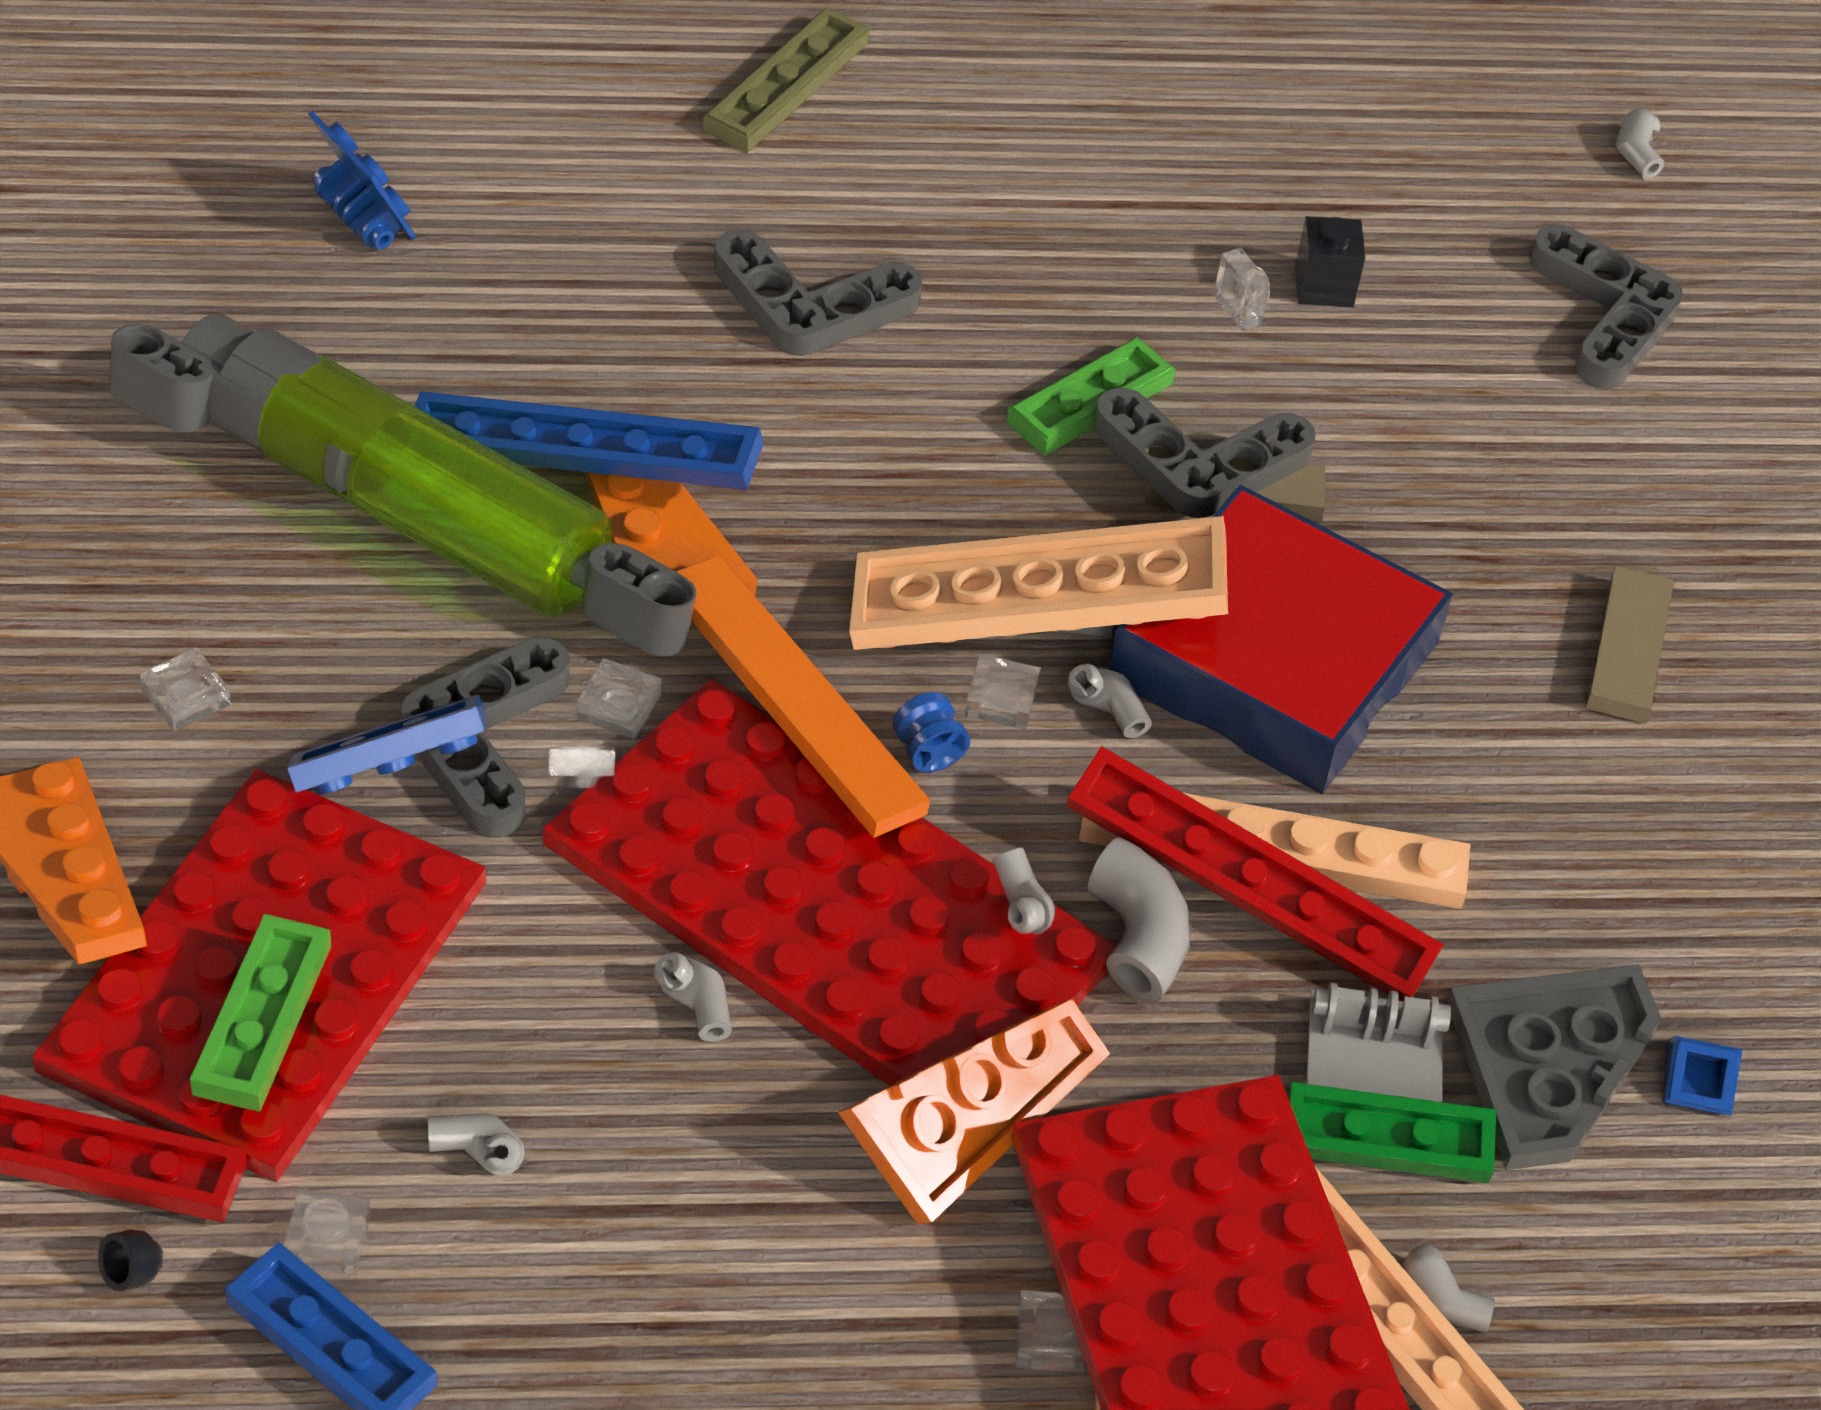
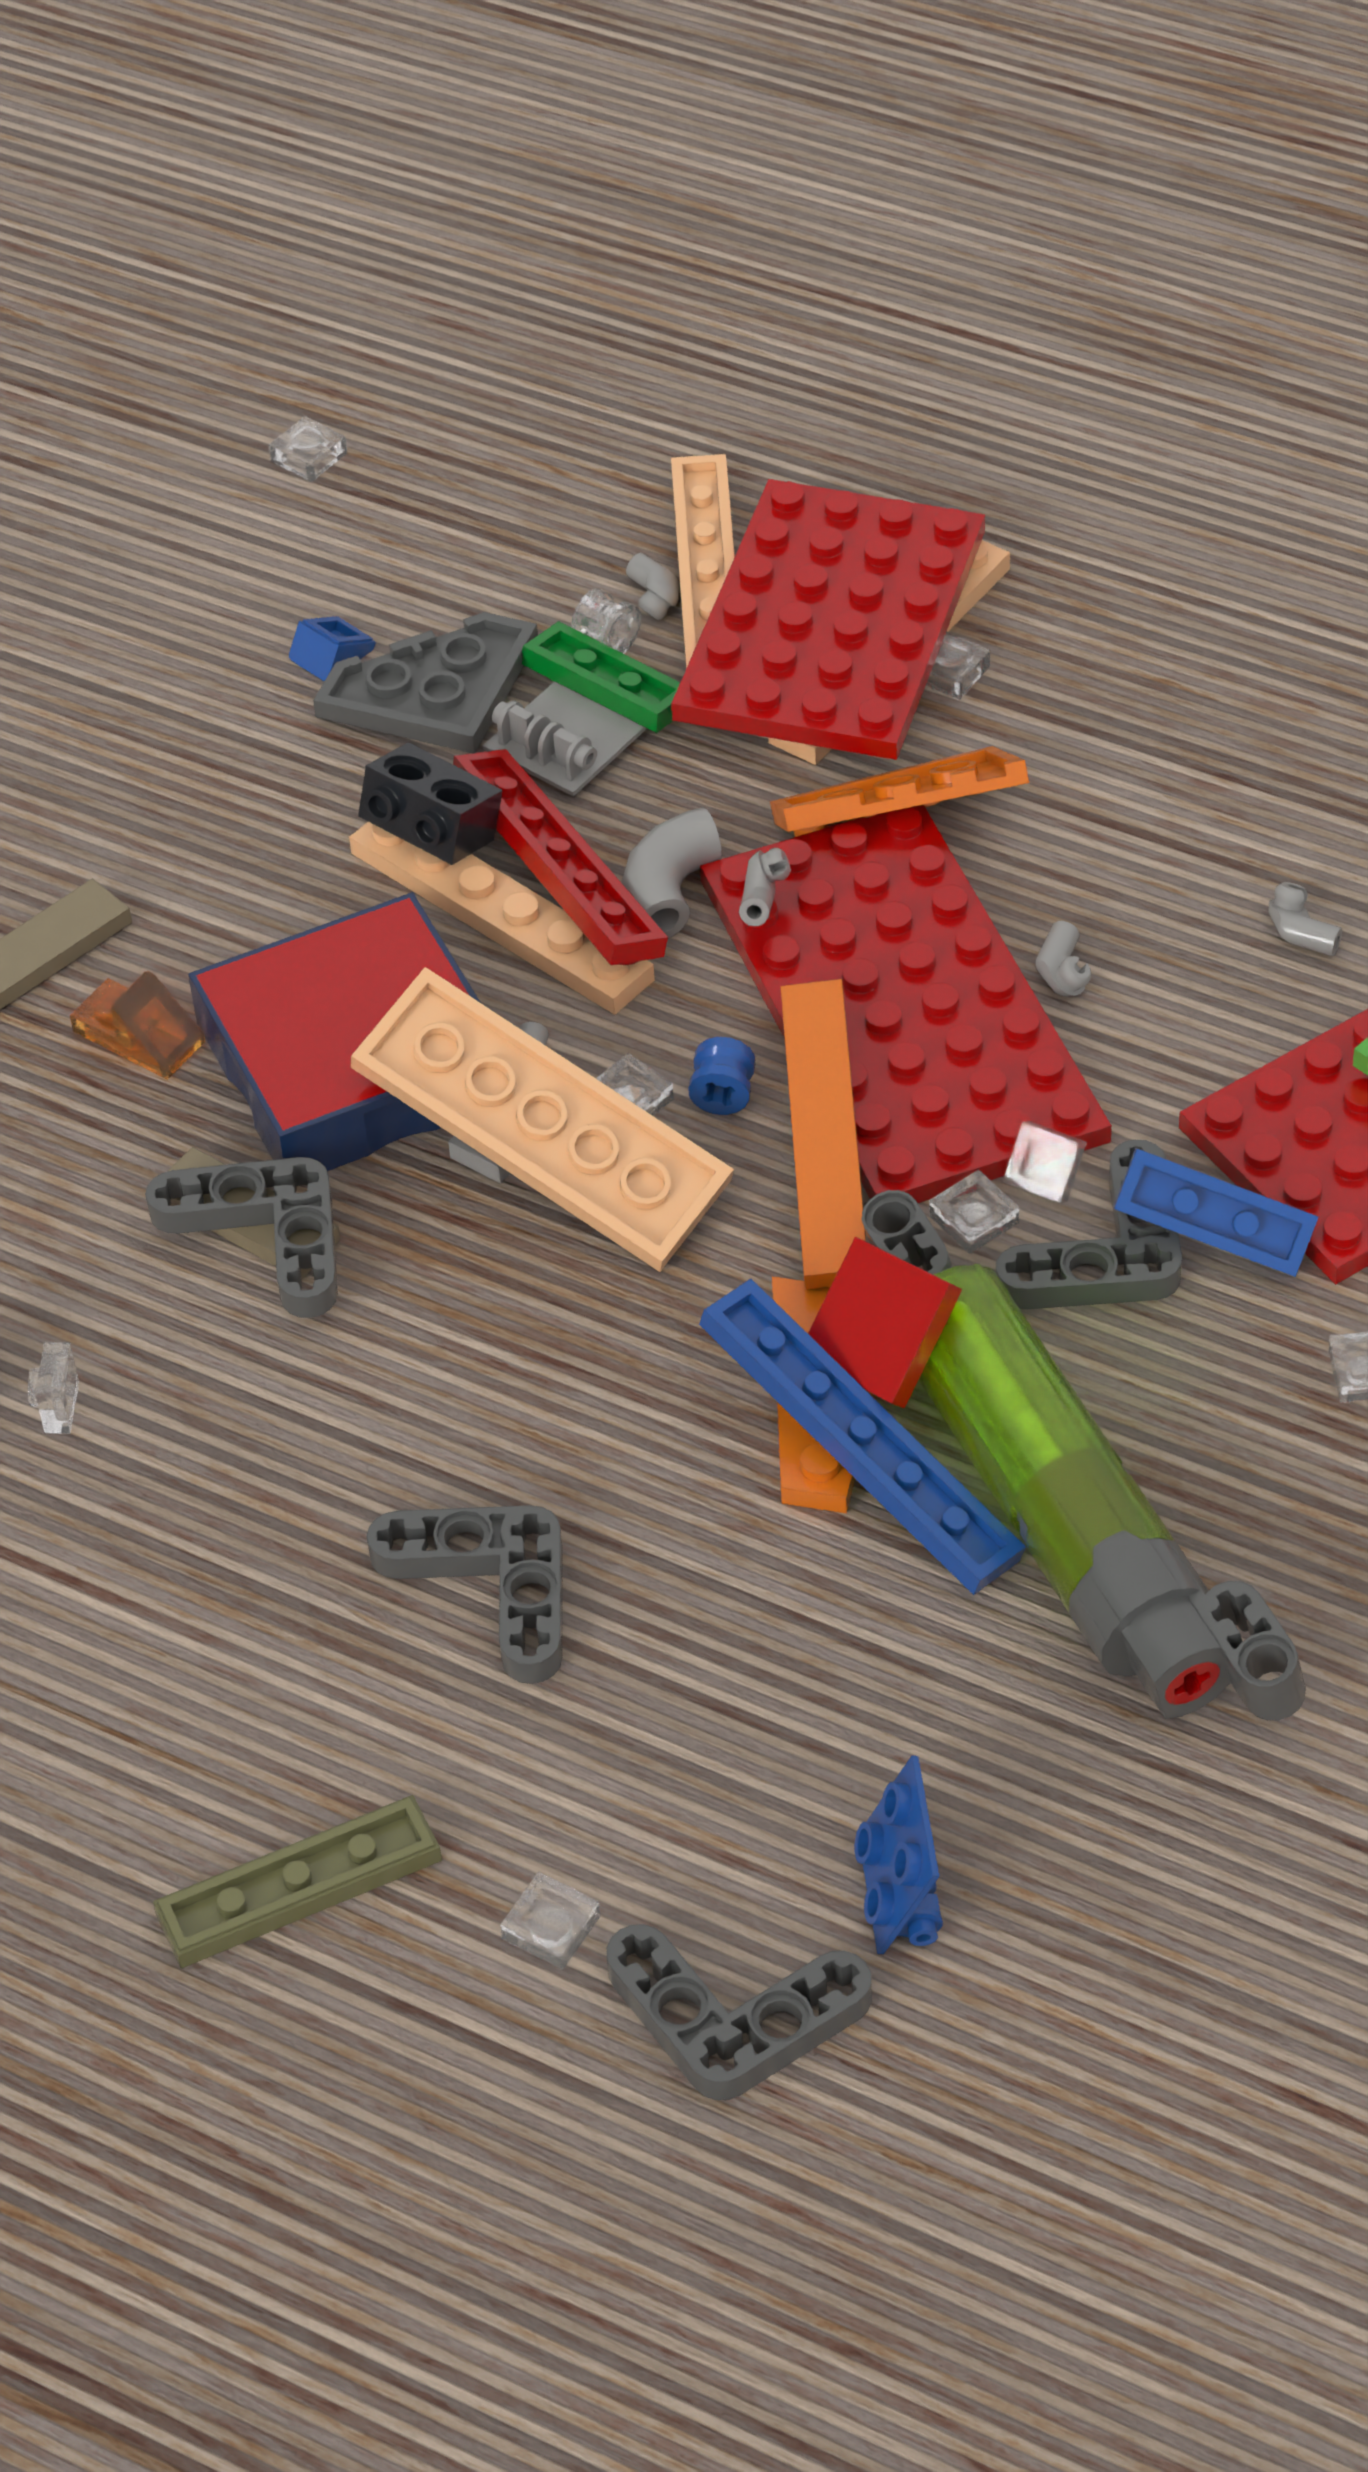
camera: 140 degrees left, 0 degrees up
(501, 100) = (721, 2032): none -> dark grey beam
(592, 98) = (550, 1920): none -> clear plate
(612, 491) = (883, 1320): none -> red tile
(1069, 405) = (298, 1356): bright green tile -> none
(1409, 870) = (430, 803): none -> black brick
(1446, 1197) = (606, 620): none -> clear wheel
(1486, 601) = (139, 1024): none -> clear orange slope

